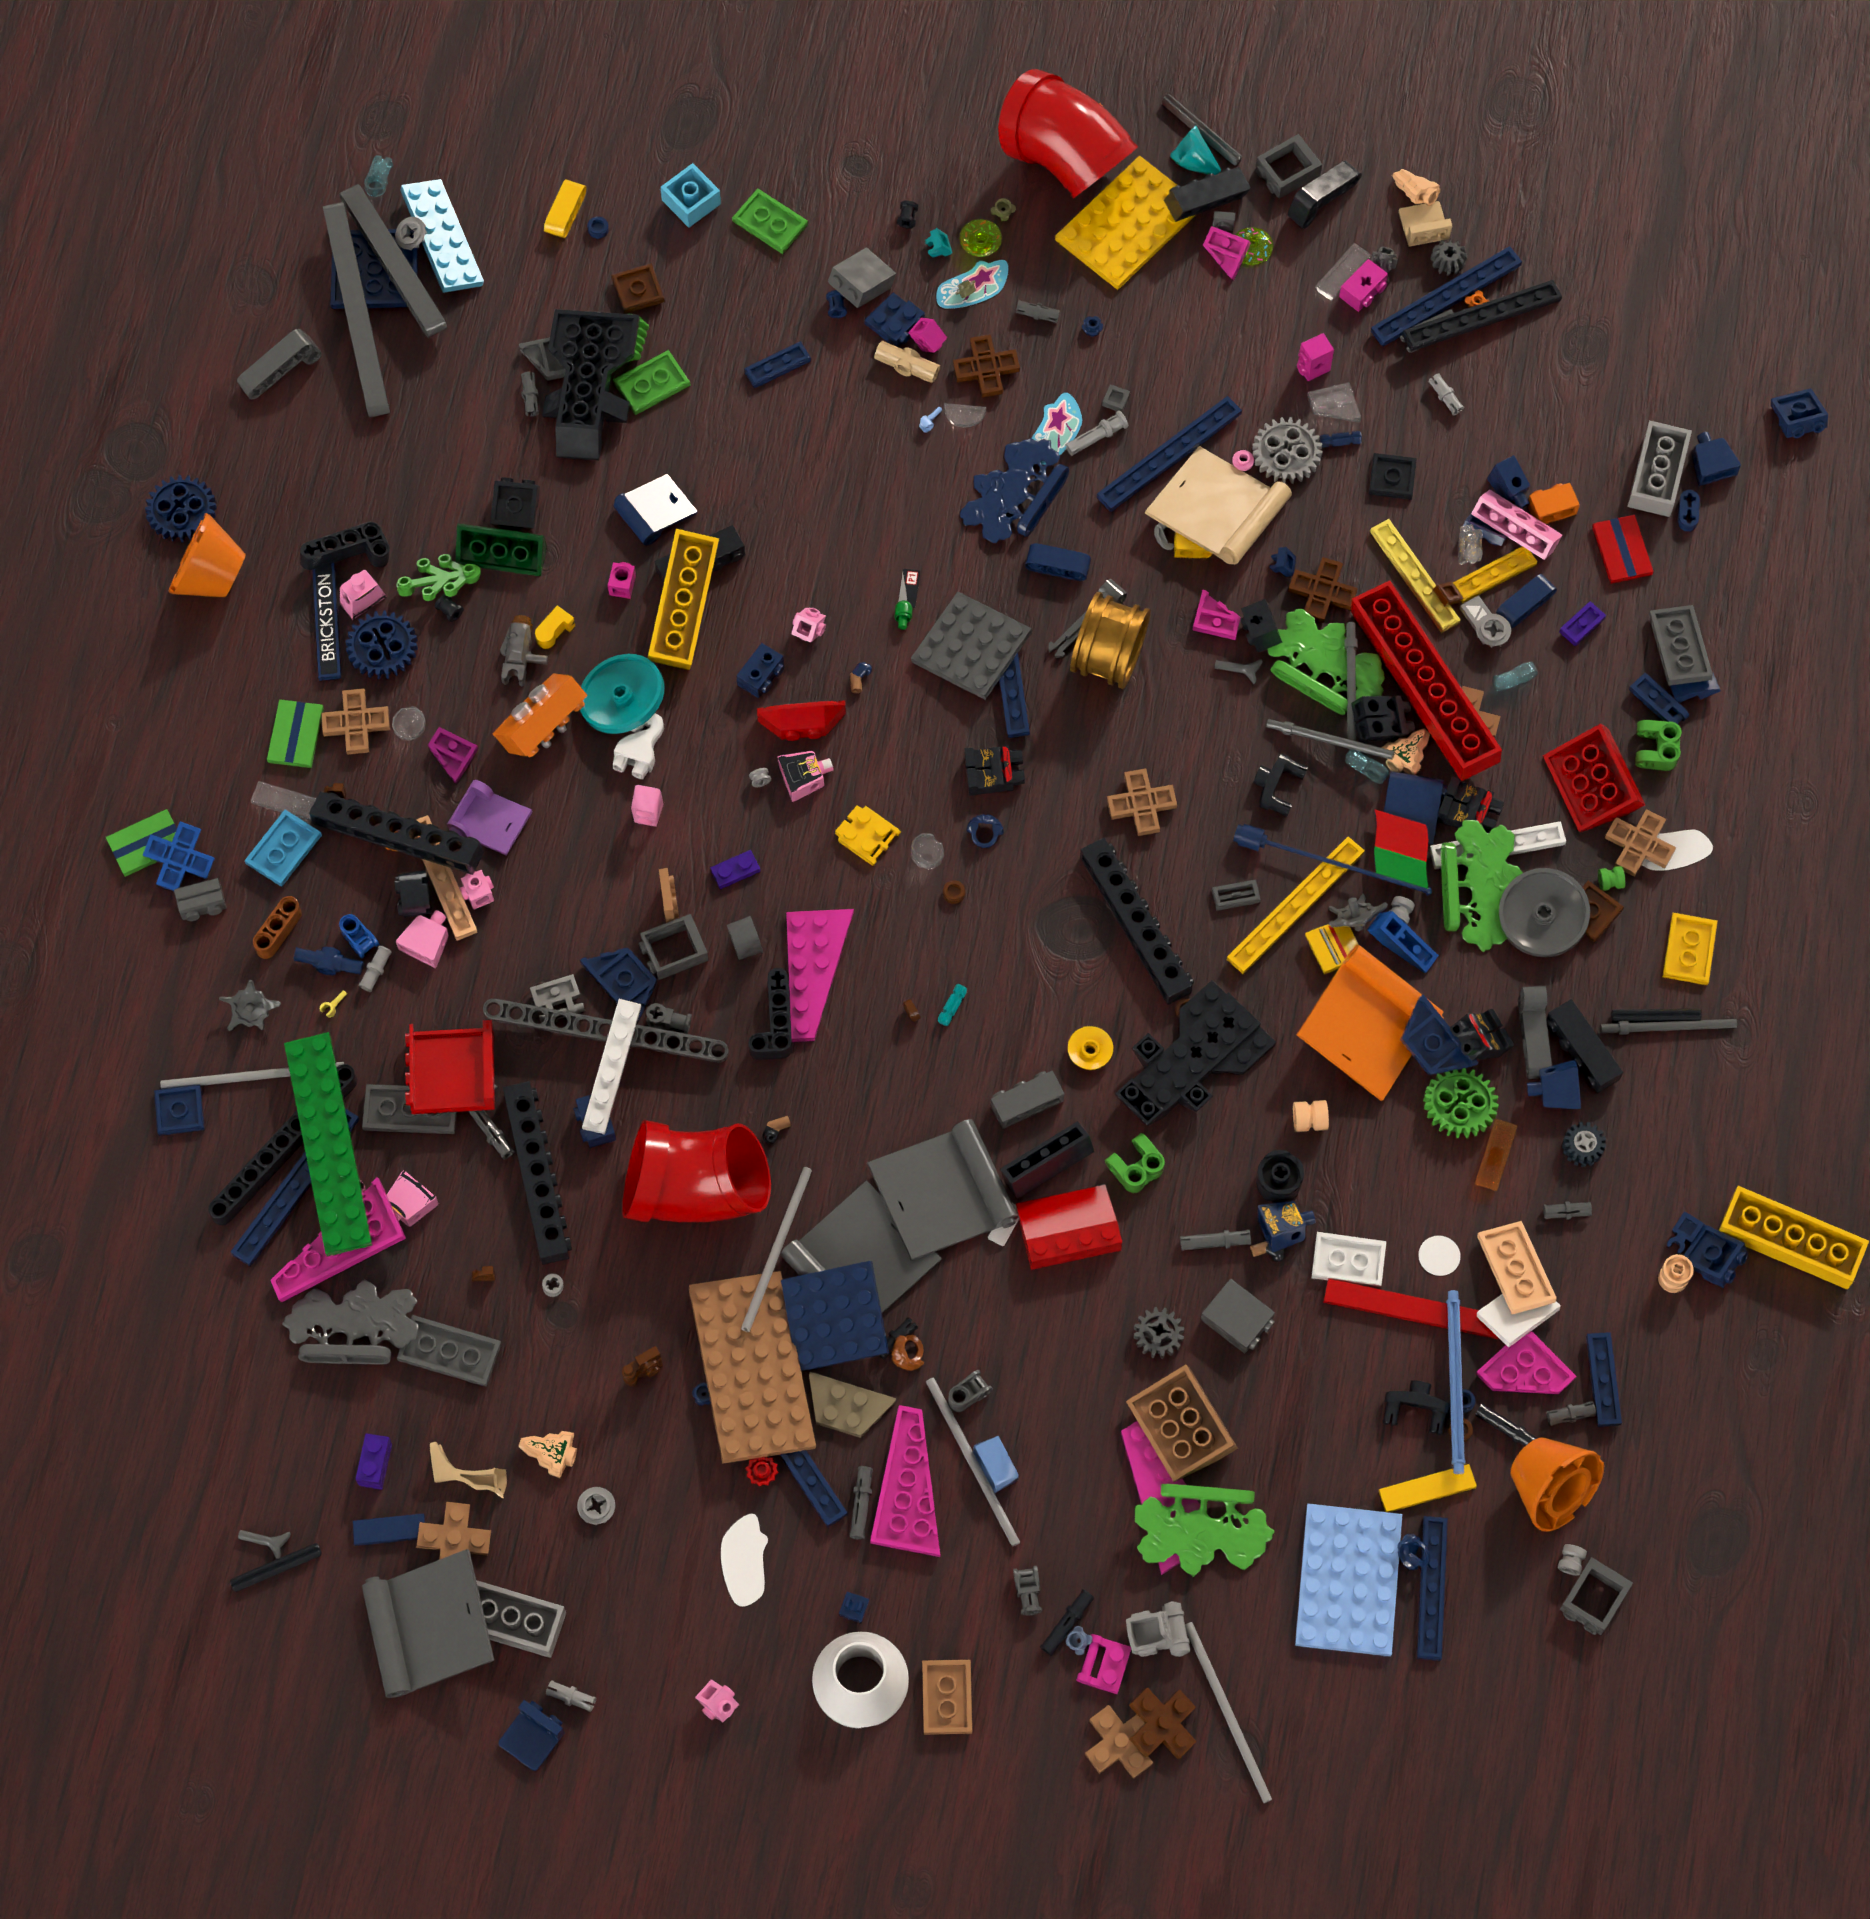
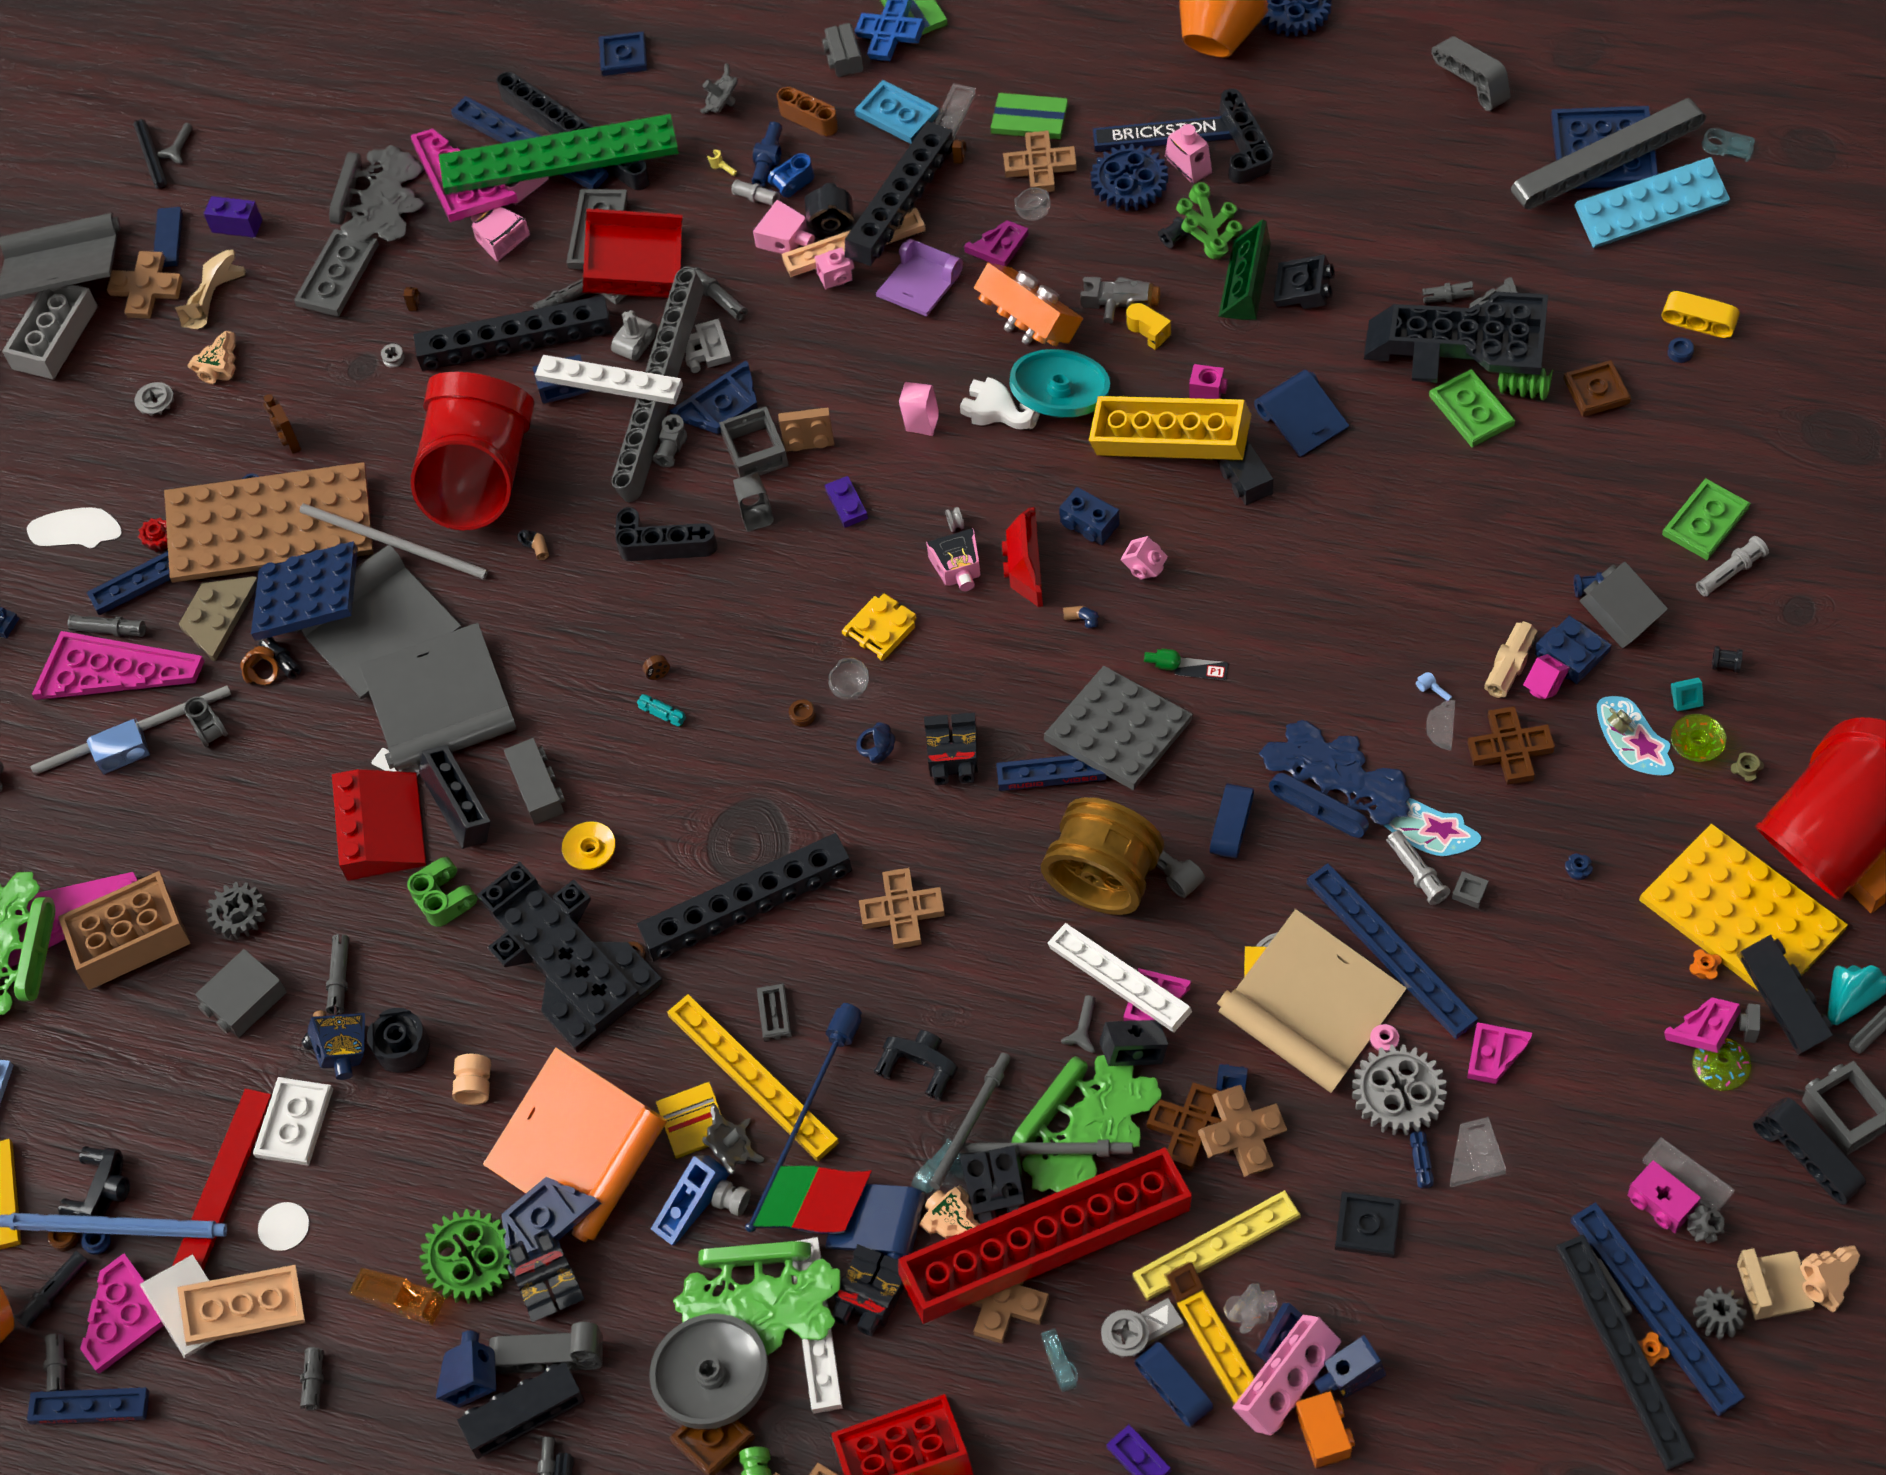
camera: 100 degrees right, 10 degrees down
(228, 1078) = (651, 95): light grey piece -> none
(356, 309) = (1543, 126): dark grey beam -> none
(403, 232) = (1645, 166): light grey gear -> none
(497, 992) = (712, 289): none -> dark grey pin
(546, 1062) = (633, 336): none -> light grey beam
(690, 195) = (1727, 430): medium azure brick -> none
(777, 364) = (1503, 530): dark blue tile -> none
(813, 198) = (1740, 560): none -> light grey pin
(813, 957) = (729, 576): dark pink wing -> none
(1037, 311) = (1595, 803): dark grey pin -> none
(1174, 253) = (1702, 971): none -> orange plate
(1204, 637) = (1120, 977): none -> white plate
(1252, 388) = (1495, 1051): none -> dark pink wing
(1315, 357) = (1537, 1122): dark pink brick -> none
(1328, 552) = (1242, 1130): none -> medium nougat plate
(1446, 394) = (1496, 1298): light grey pin -> none
(1587, 1137) = (385, 1399): black wheel -> none

